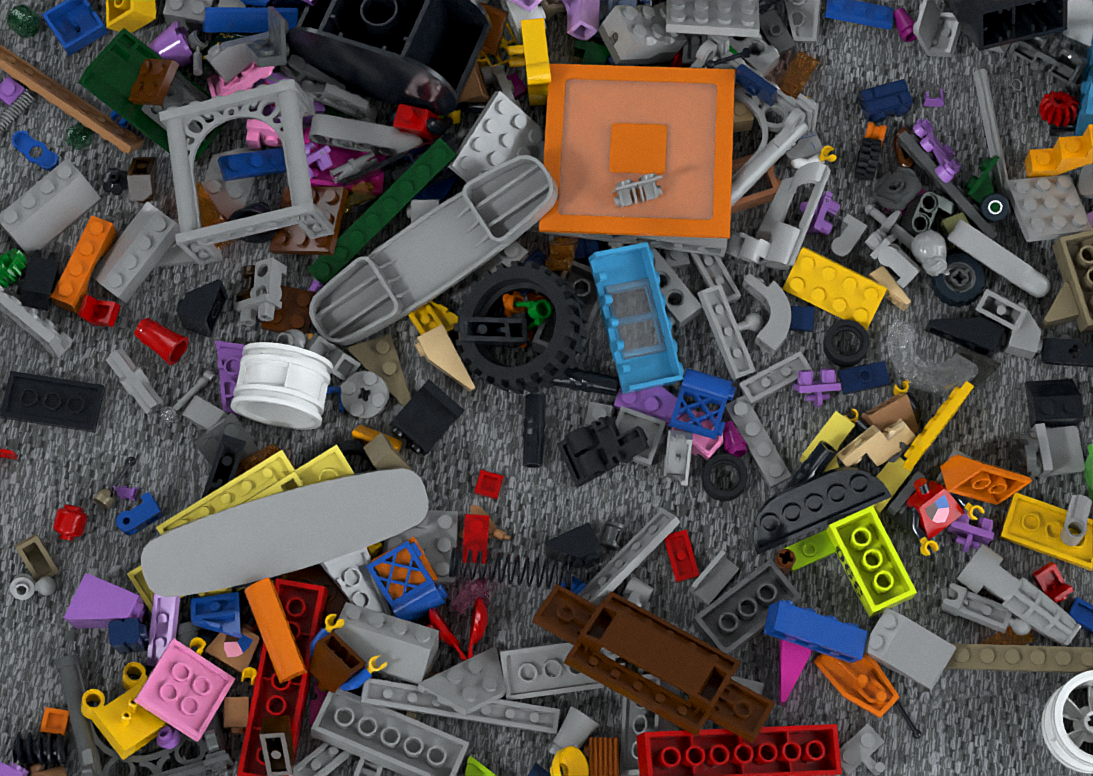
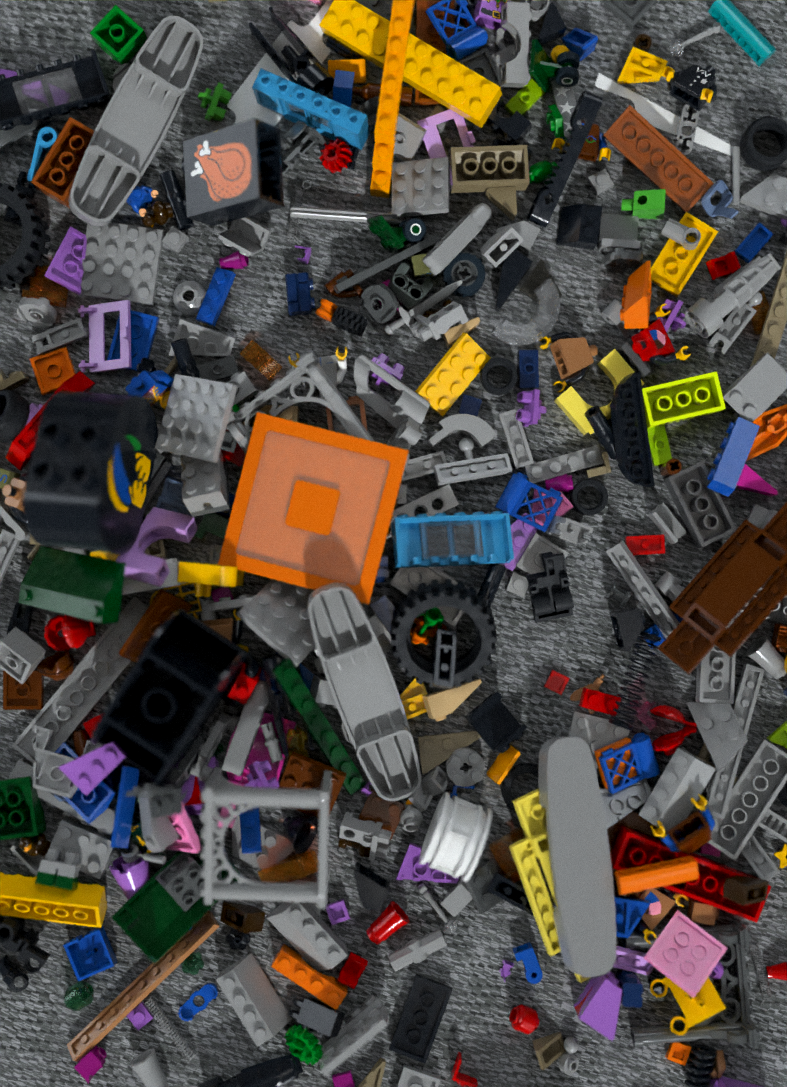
camera: 80 degrees left, 15 degrees up
(106, 497) = (508, 987): hinge -> none
(153, 82) = (167, 900): reddish brown plate -> none
(165, 283) = (337, 911): none -> medium lavender plate
(383, 454) = (525, 762): dark tan slope -> none
(534, 430) = (523, 638): black axle -> none
(562, 253) = (388, 589): clear orange slope -> none
(647, 182) = (350, 509): light grey hinge -> none
(746, 53) = (242, 398): black hinge -> none
(756, 85) = (275, 398): dark blue plate -> none
(765, 489) = (601, 469): none -> dark tan tile
(845, 244) = (412, 353): light grey leg -> none
(878, 445) = (594, 373): tan plate -> none
(930, 252) = (441, 291): light grey hair -> none
(936, 425) = (586, 319): yellow plate -> none
(943, 153) = (353, 263): medium lavender plant -> none

